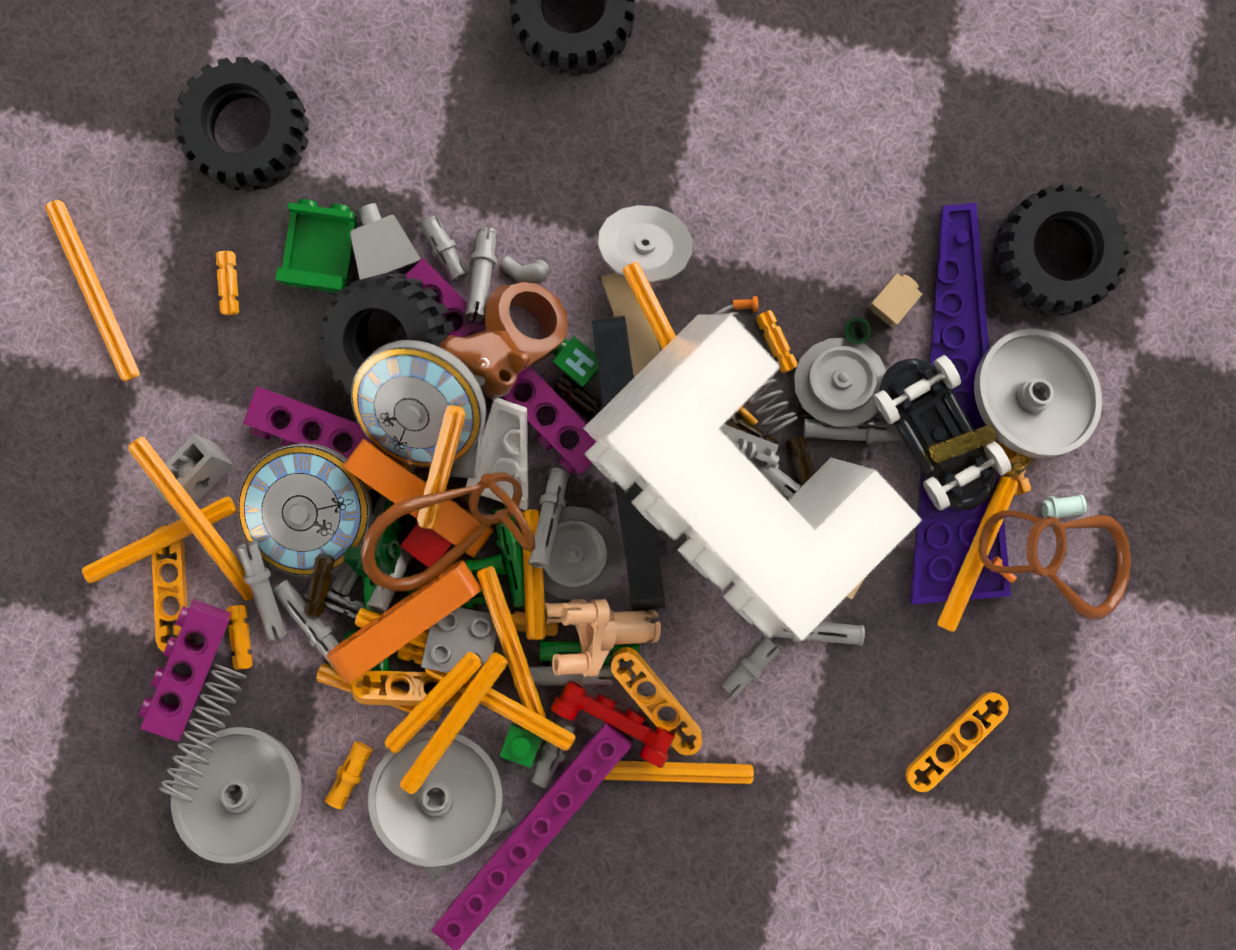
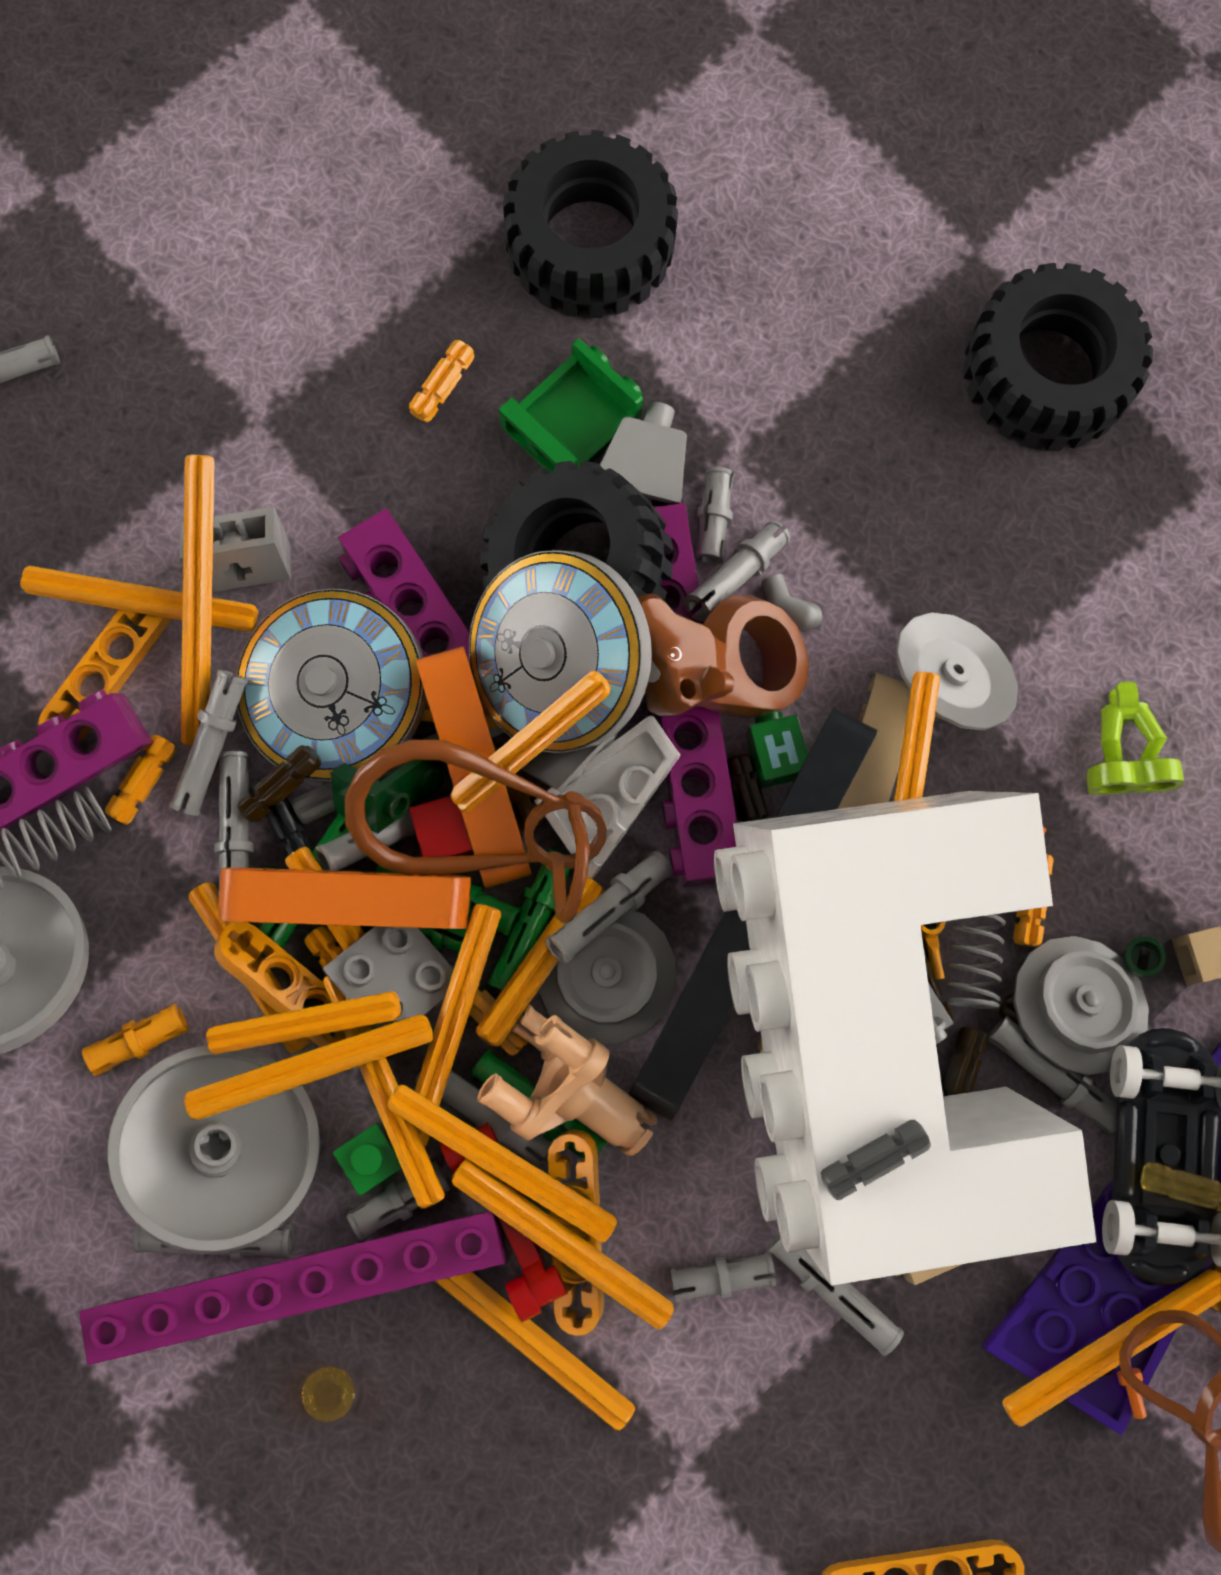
camera: 30 degrees right, 10 degrees down
(92, 290) = (286, 287): light orange axle -> none
(589, 875) = (328, 1394): none -> clear yellow plate
(592, 697) = (502, 1163): none -> light orange axle
(653, 713) = (563, 1244): none -> light orange axle
(779, 564) = (875, 1159): none -> dark grey axle
(792, 221) = (1124, 776): none -> lime piece

